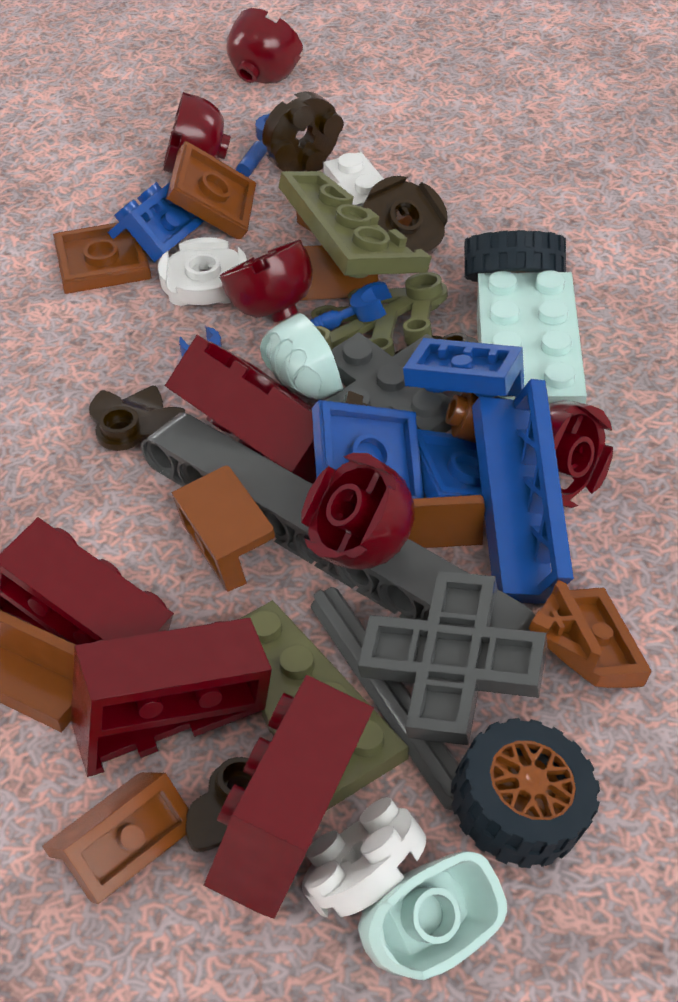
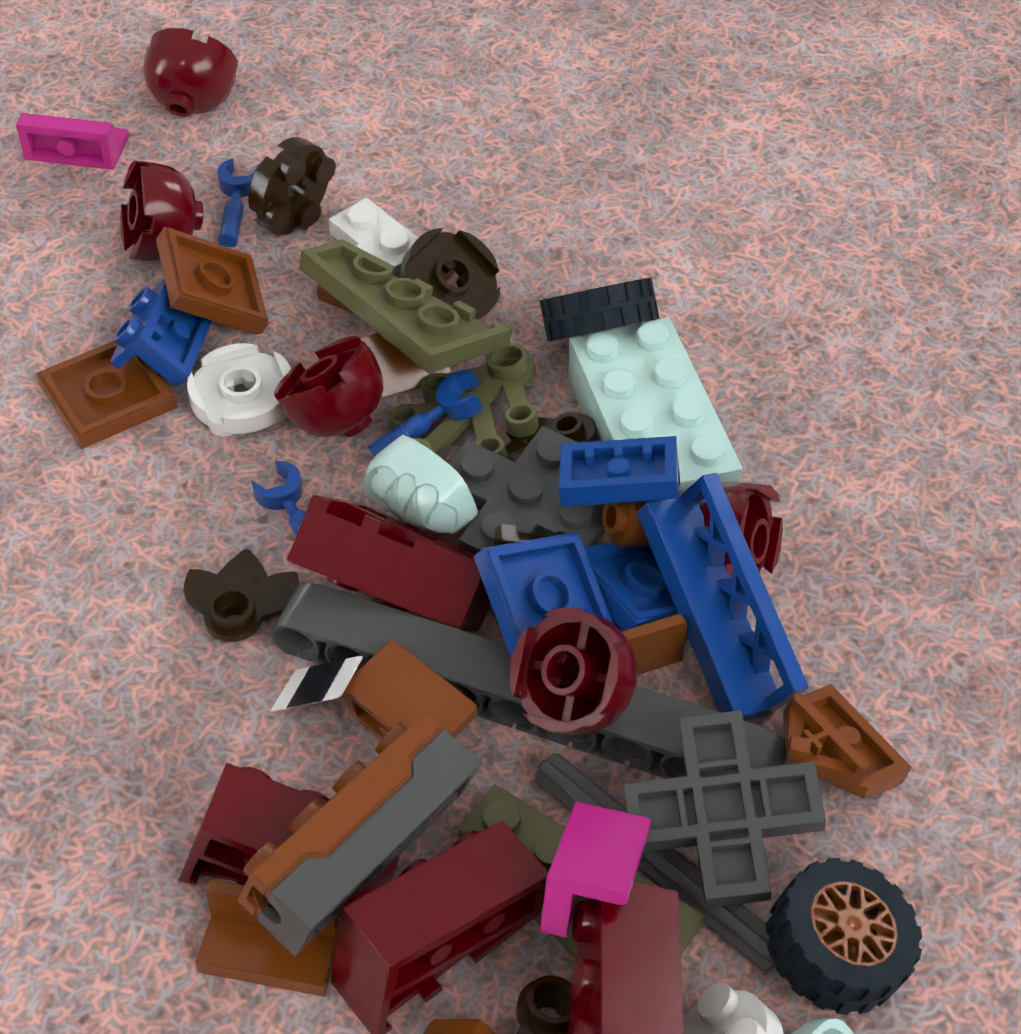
camera: 20 degrees left, 5 degrees up
(122, 593) = (357, 832): none -> piece
(153, 82) = (71, 141): none -> dark pink panel
(159, 490) = (317, 683): none -> sticker
(303, 664) = (592, 861): none -> dark pink panel

